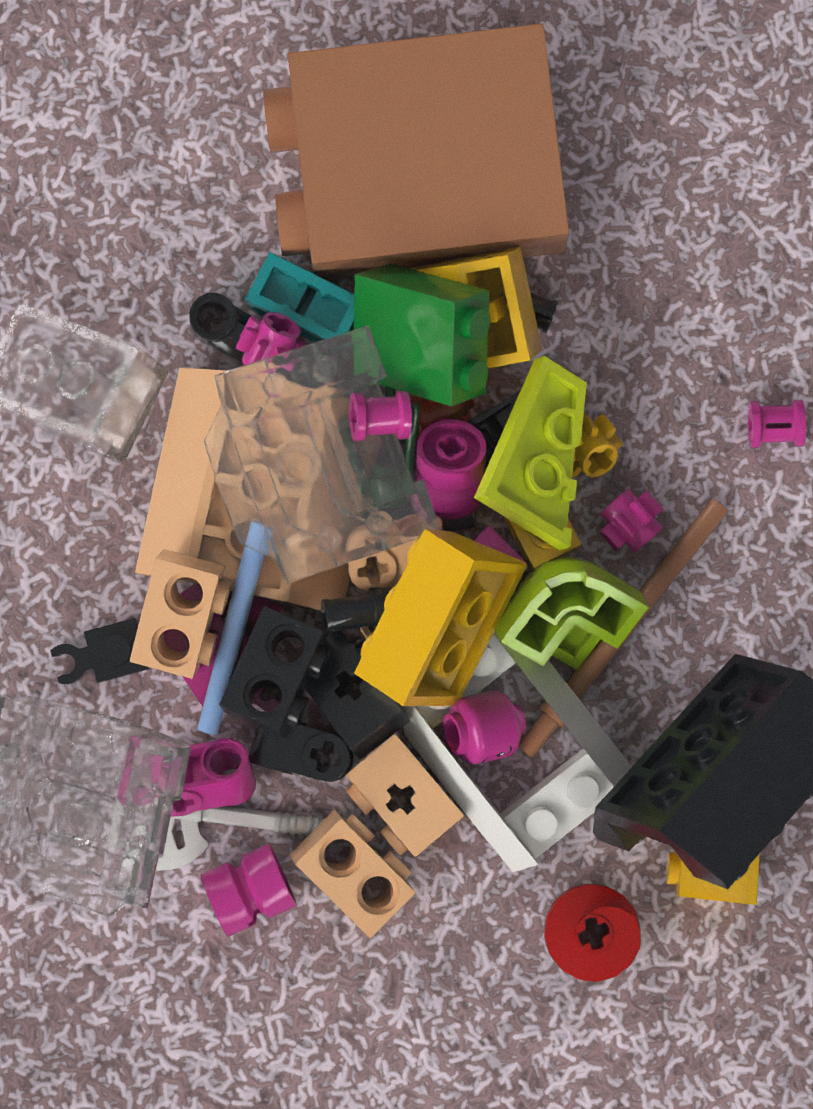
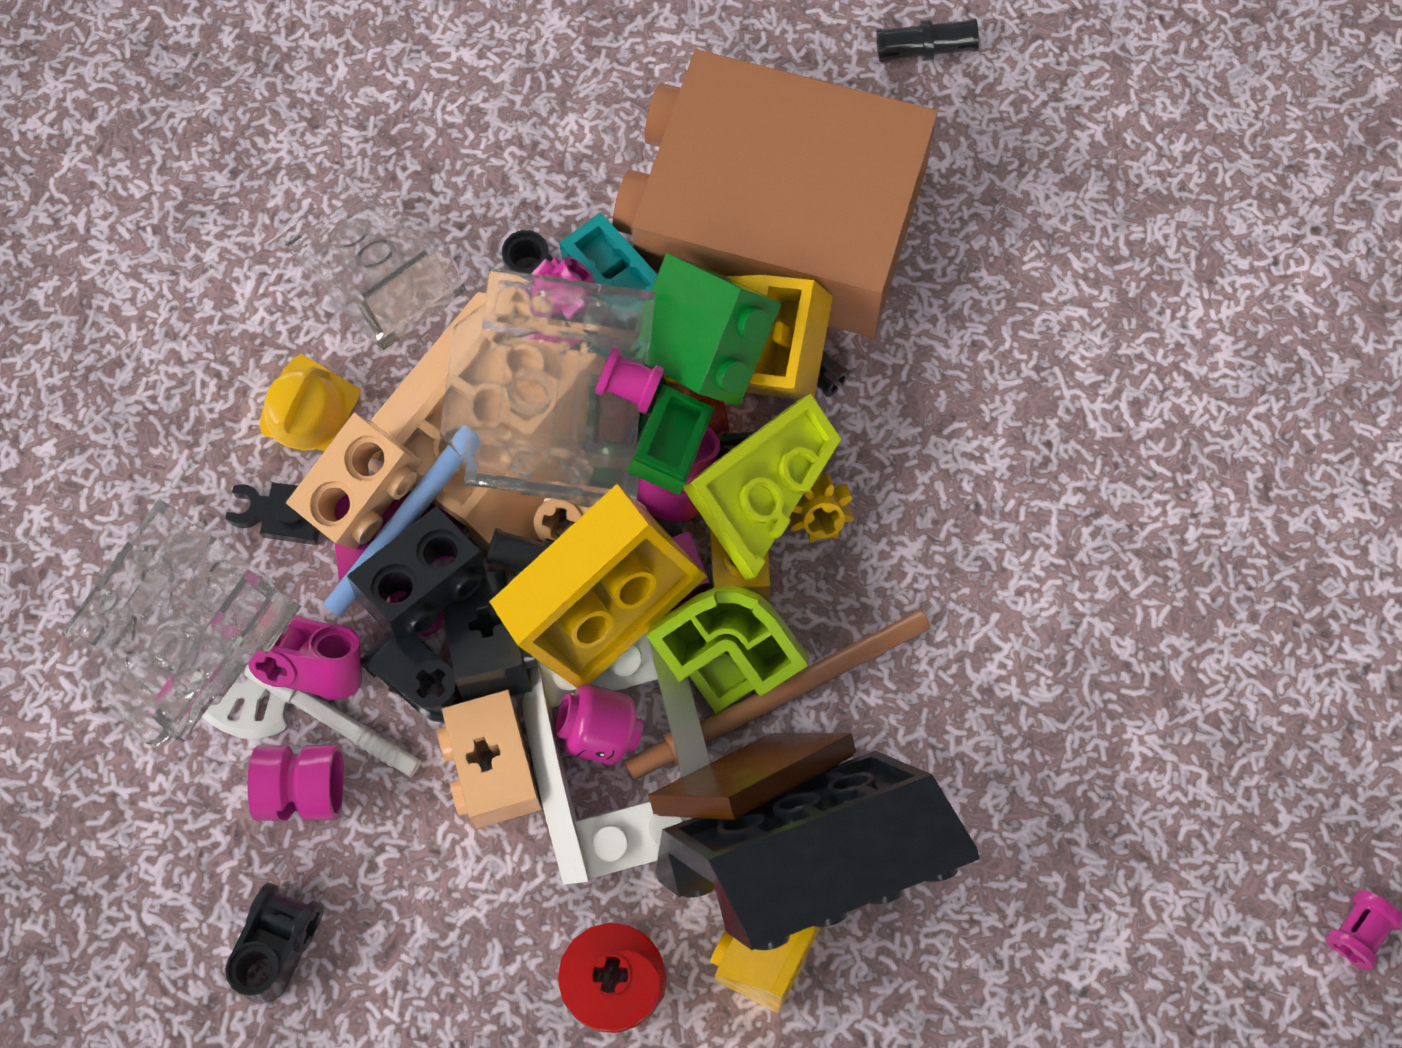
camera: 25 degrees right, 15 degrees down
(74, 542) = (307, 405): none -> yellow piece
(295, 1025) = (272, 939): none -> black piece
(345, 879) = (389, 815): light nougat brick -> none
(444, 458) = (670, 440): none -> green tile
(631, 520) = (830, 593): dark pink gear -> none
(642, 721) = (752, 775): none -> reddish brown tile
(792, 431) = (1020, 577): dark pink bush -> none

